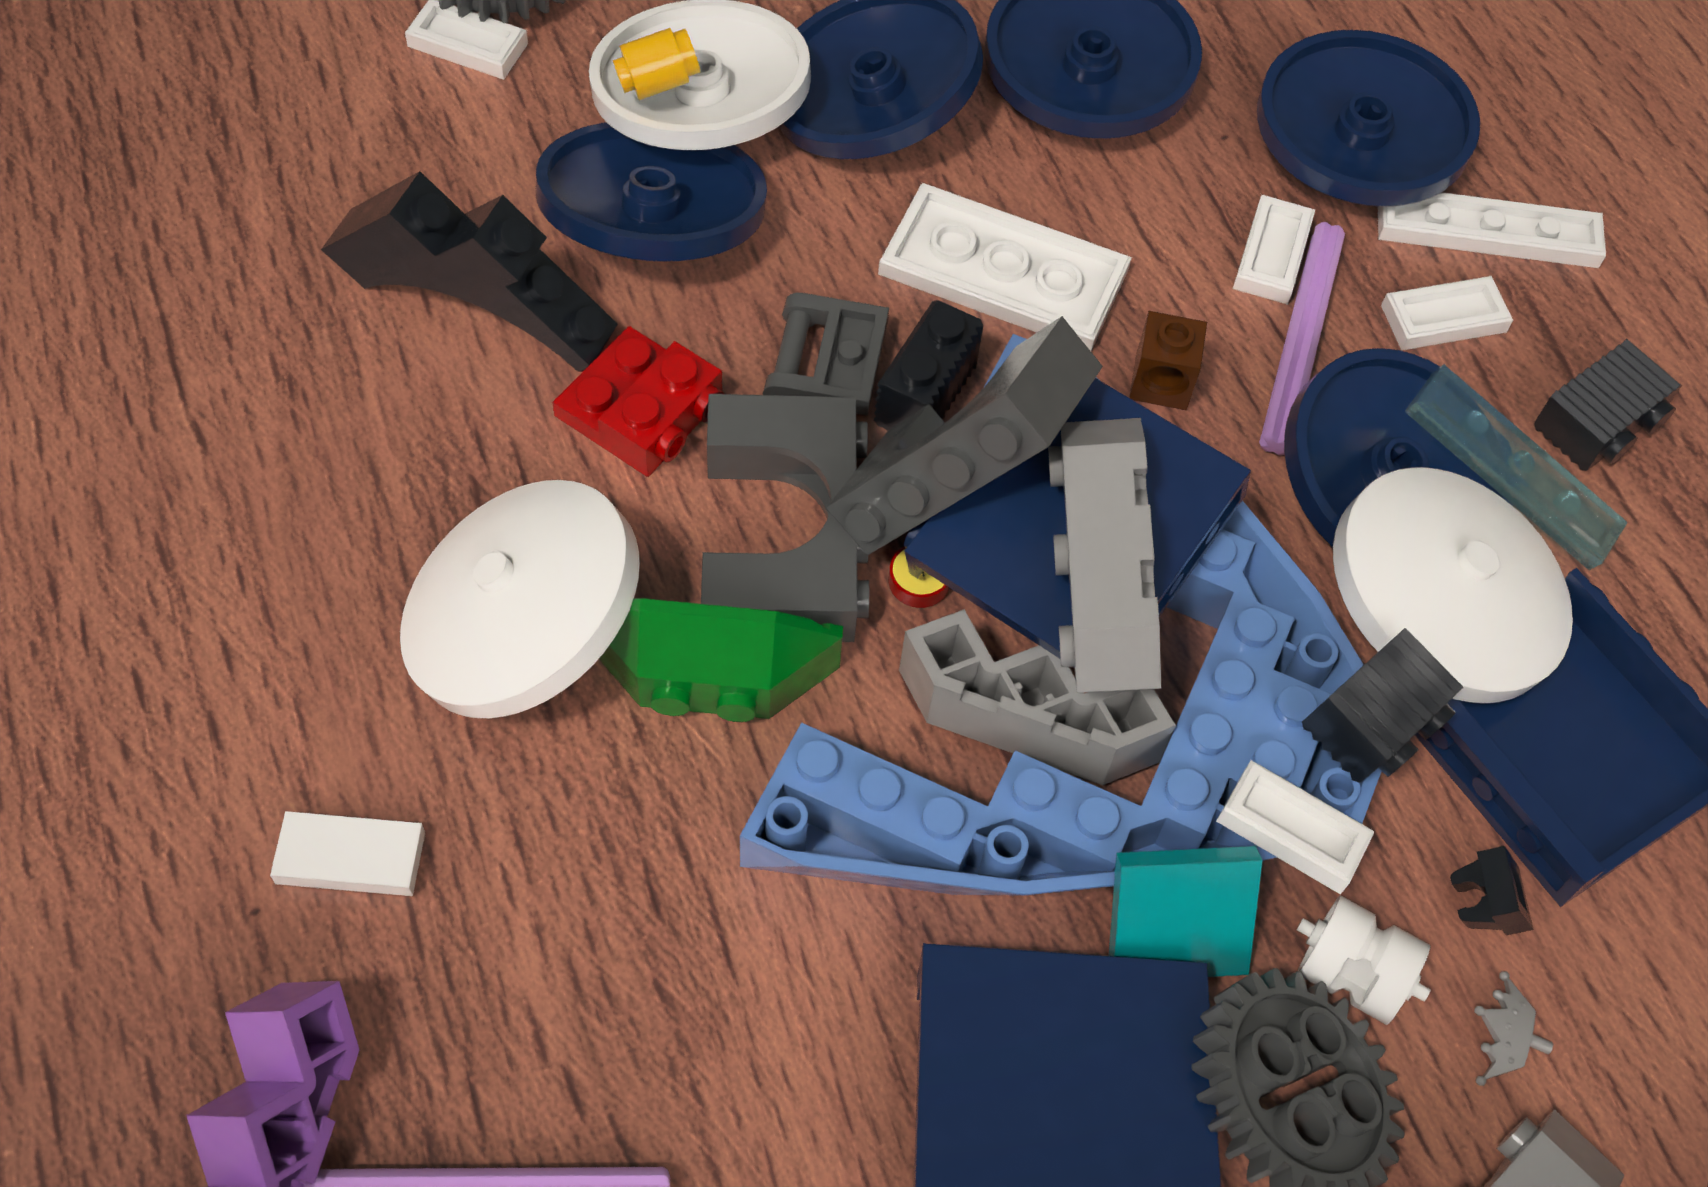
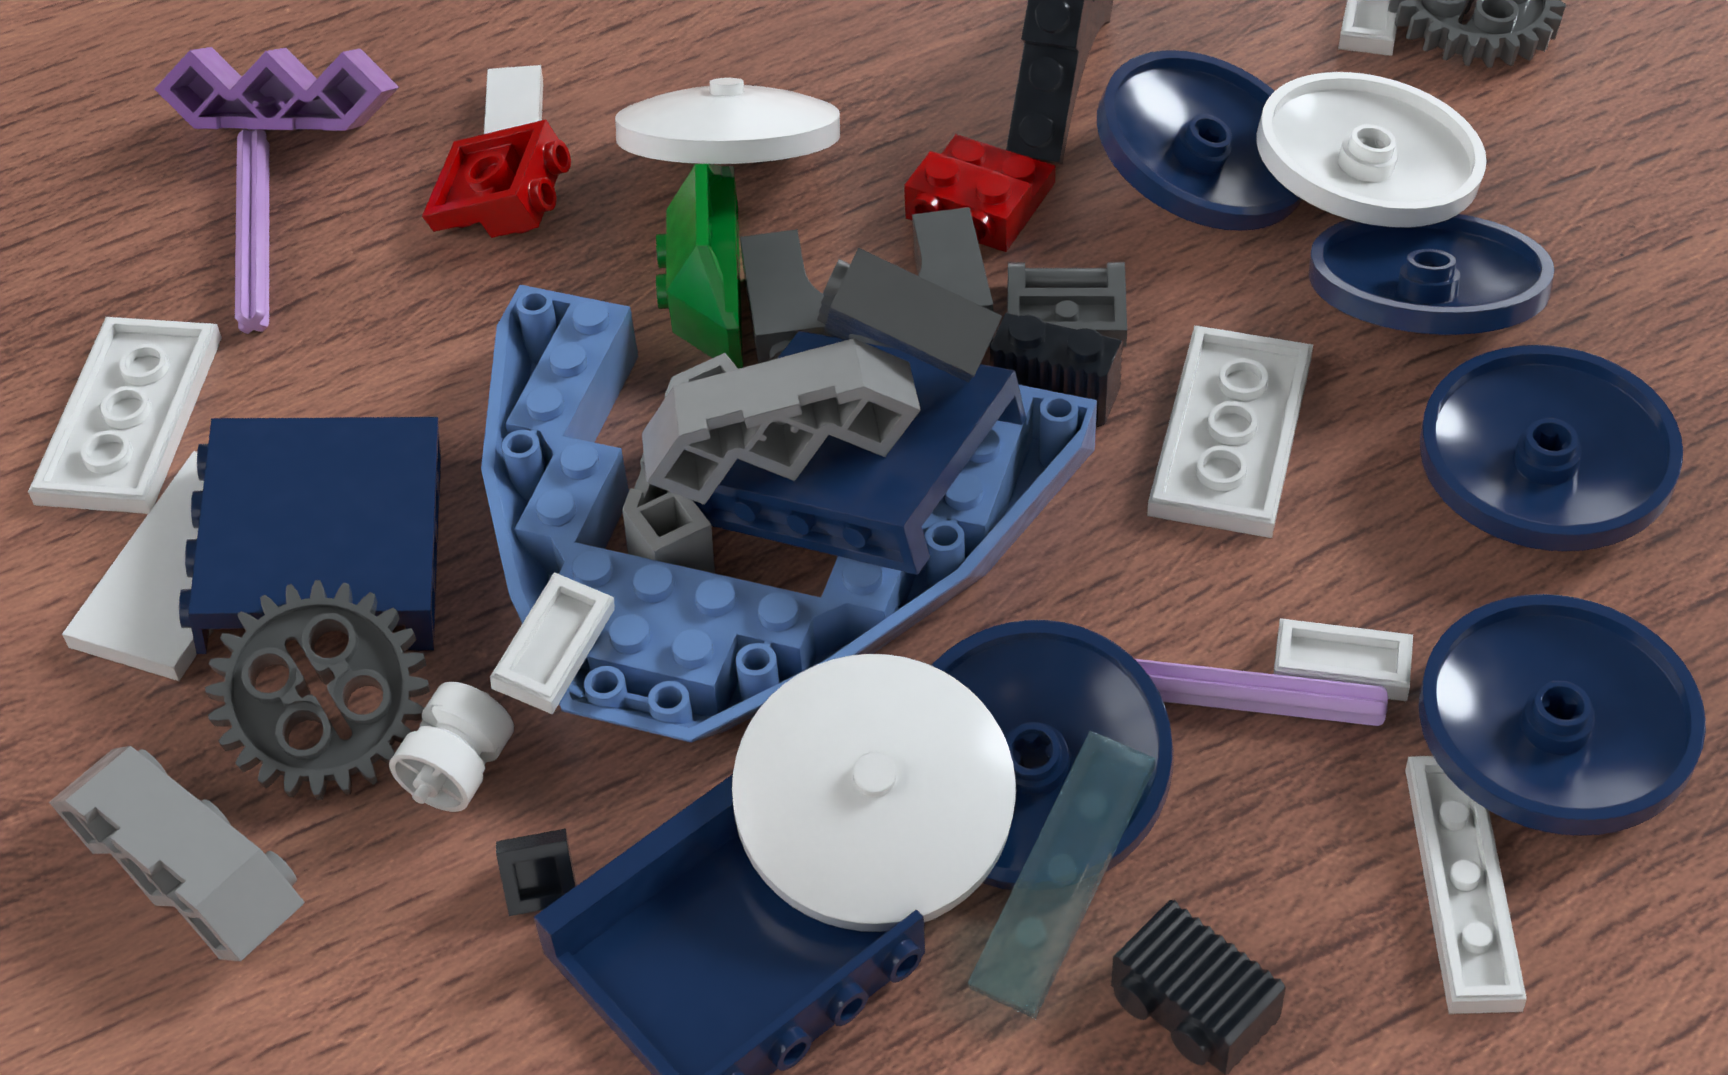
camera: 90 degrees right, 10 degrees down
(501, 872) = (499, 180): none -> red plate
(656, 63) = (1340, 95): yellow brick -> none
(1168, 360) = (1128, 553): reddish brown brick -> none
(1187, 906) = (479, 593): teal tile -> none
(1383, 706) = (681, 693): black brick -> none
(1446, 313) = (1305, 834): white tile -> none
(1511, 1031) = (403, 895): light grey piece -> none

